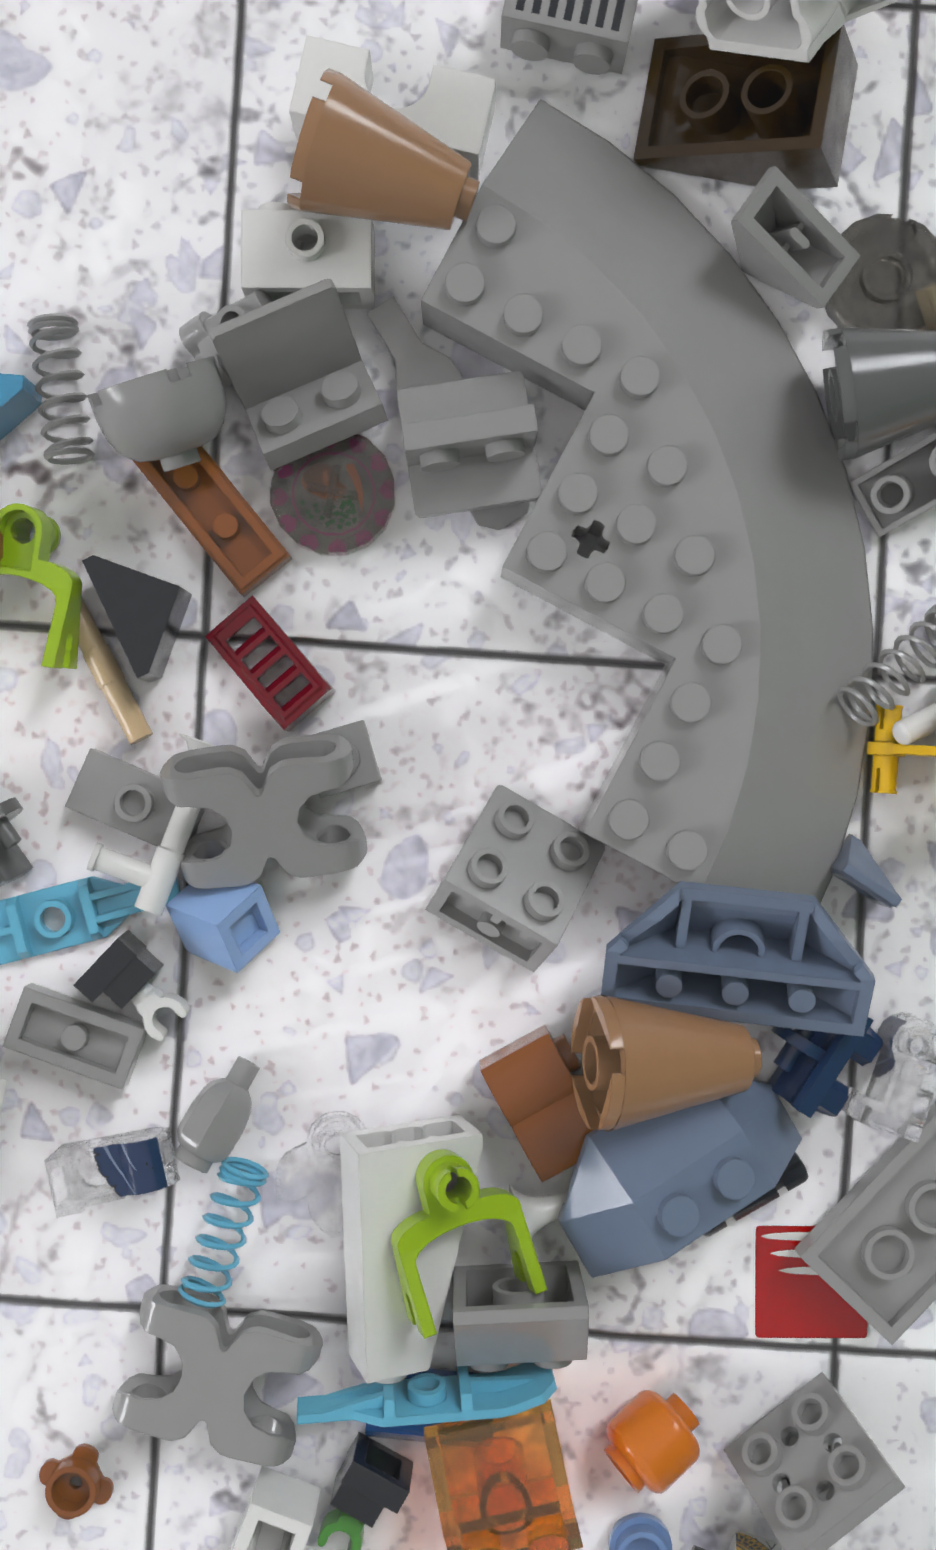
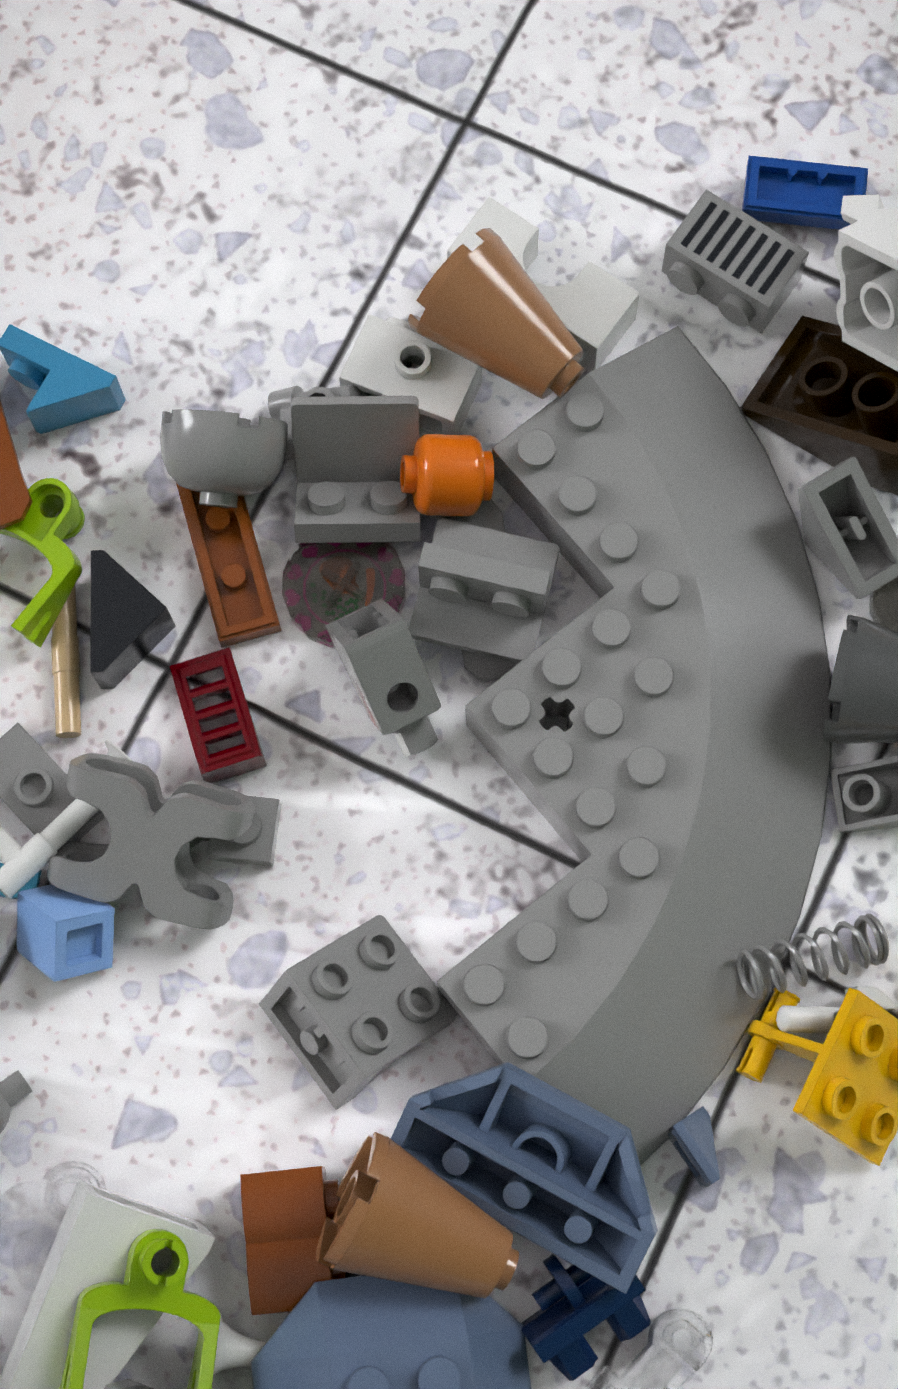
camera: 30 degrees right, 15 degrees down
(65, 329) = (171, 353): light grey piece -> none
(389, 344) = (448, 475): none -> orange head
(413, 561) = (379, 655): none -> light grey torso

